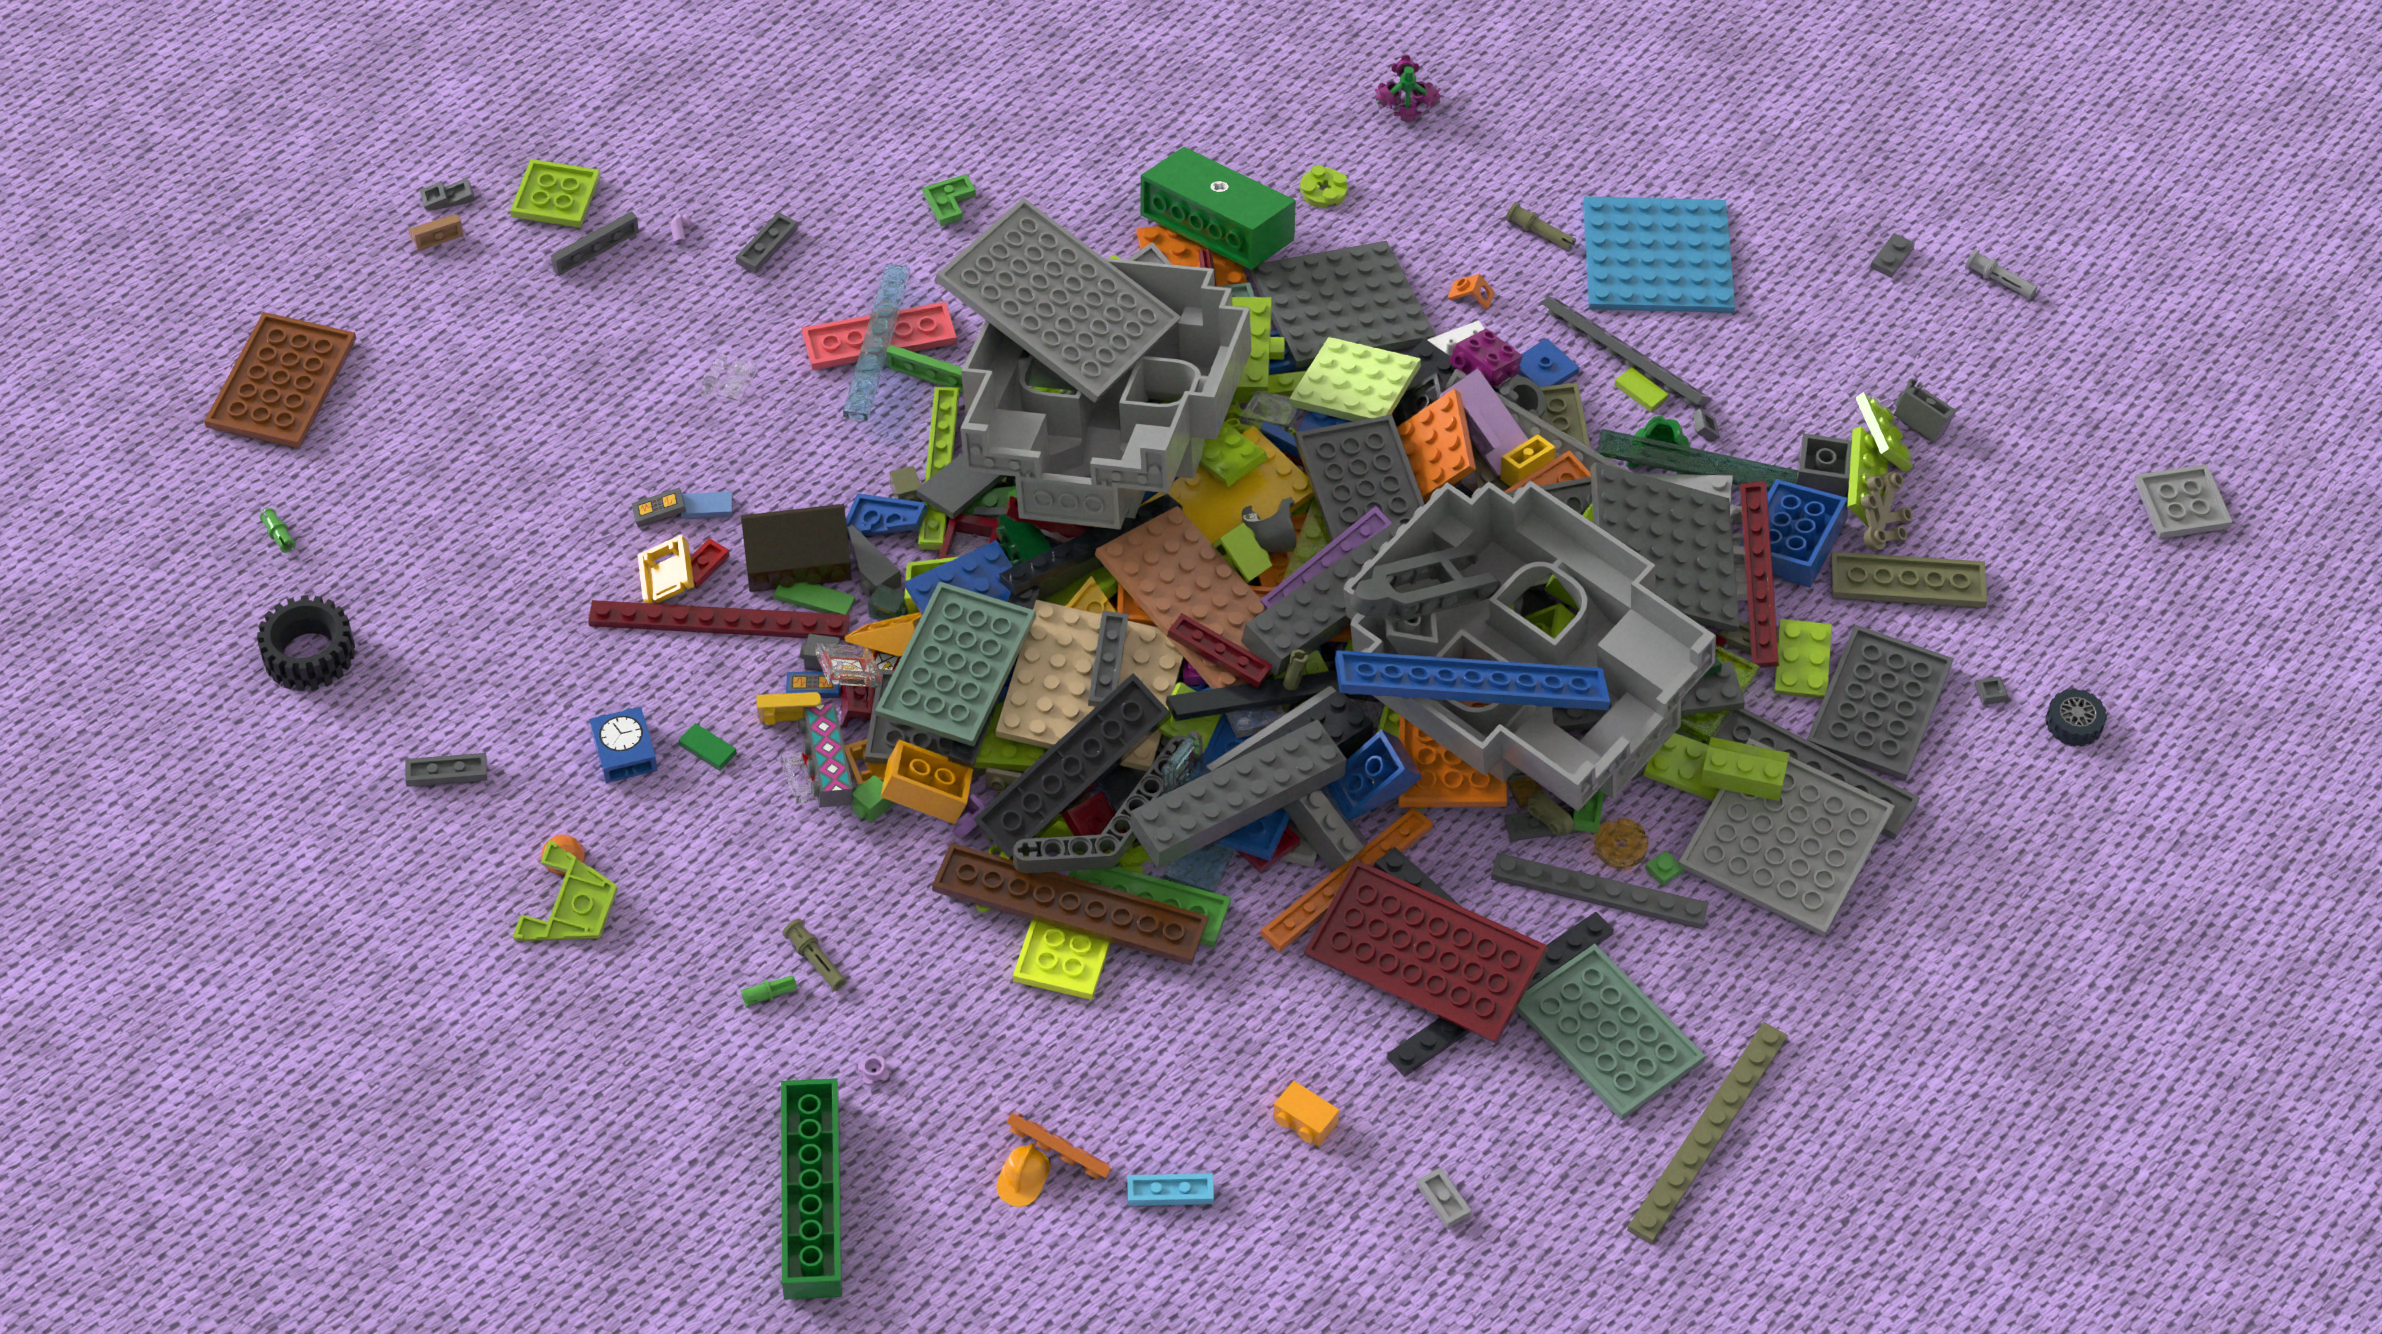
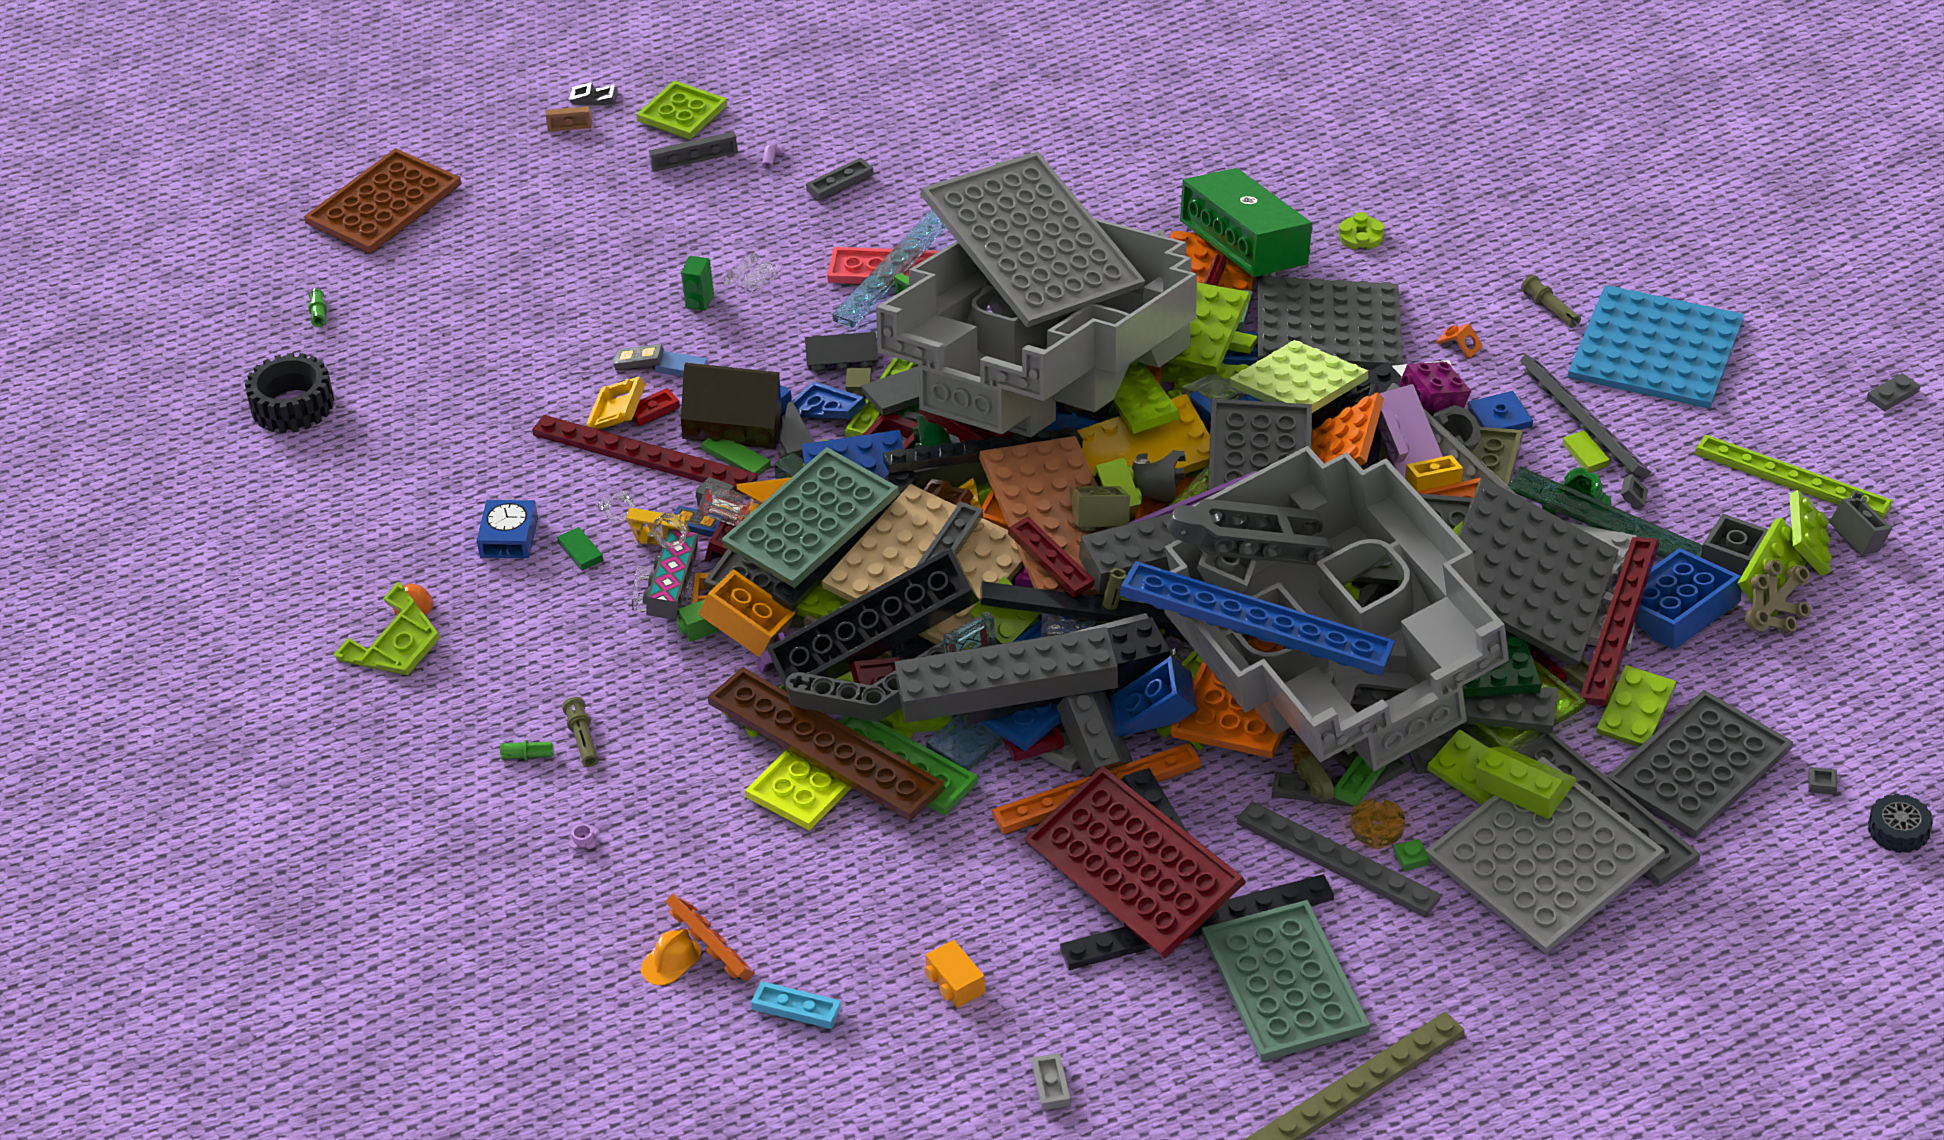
camera: 25 degrees right, 10 degrees down
(446, 769) = (351, 514): dark grey plate -> none
(684, 407) = (697, 283): none -> green brick
(724, 675) = (621, 495): none -> clear piece
(796, 714) = (673, 519): none -> clear piece
(811, 1189) = (470, 916): green brick -> none
(869, 450) = (841, 350): none -> dark grey slope
(1068, 597) = (948, 493): none -> reddish brown slope
(1242, 582) = (1099, 506): none -> olive slope
(1415, 91) = (1459, 169): magenta plant -> none
(1833, 370) = (1786, 474): none -> lime tile
(1908, 579) = (1779, 665): olive plate -> none

